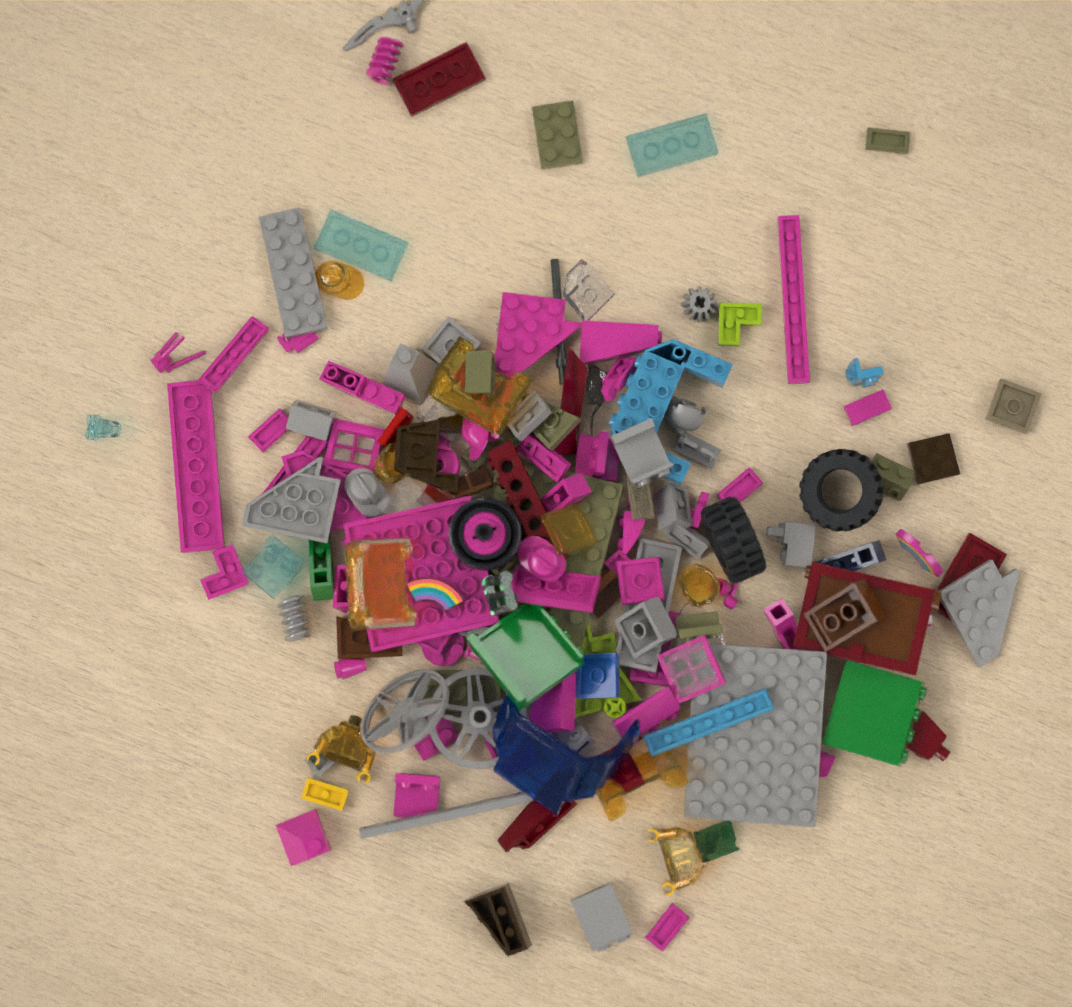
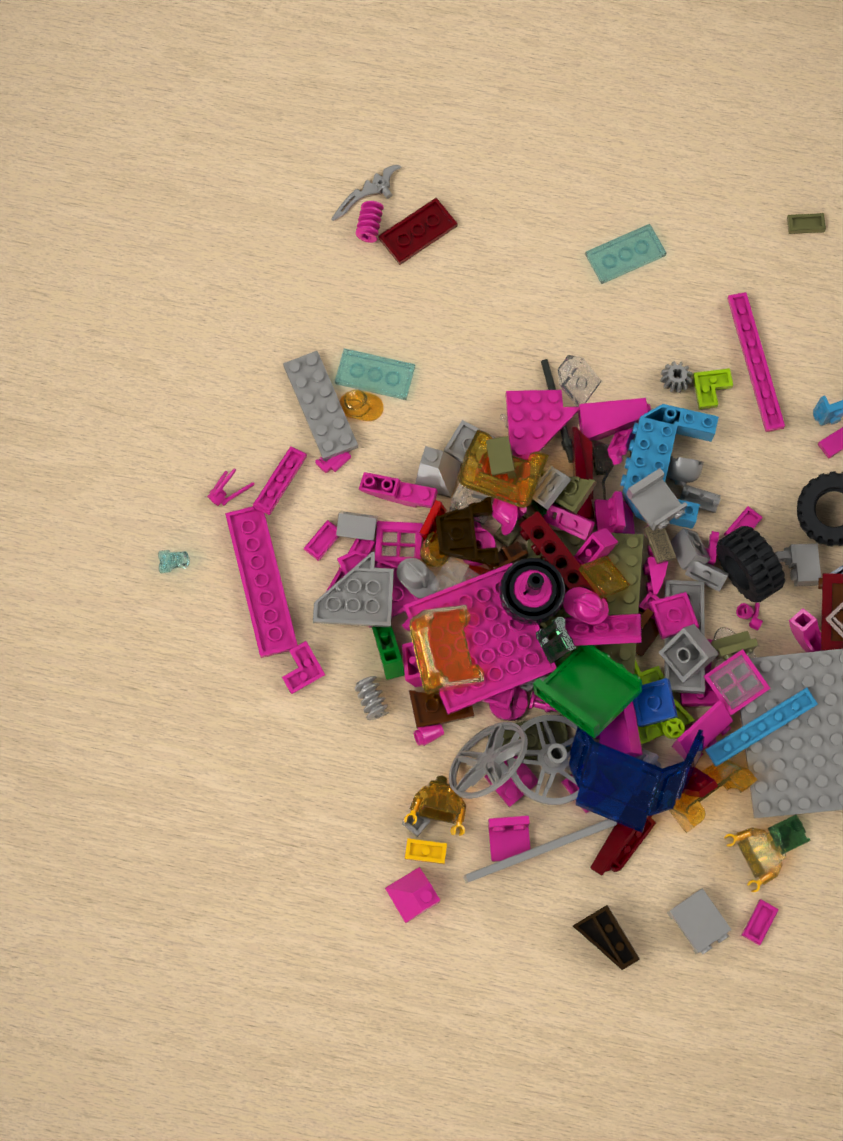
camera: 10 degrees left, 10 degrees down
(273, 567) = (346, 654): clear light blue bracket -> none
(434, 591) = (496, 650): tile -> none
(557, 134) = (527, 260): olive plate -> none
(699, 585) = (726, 611): clear yellow hair -> none

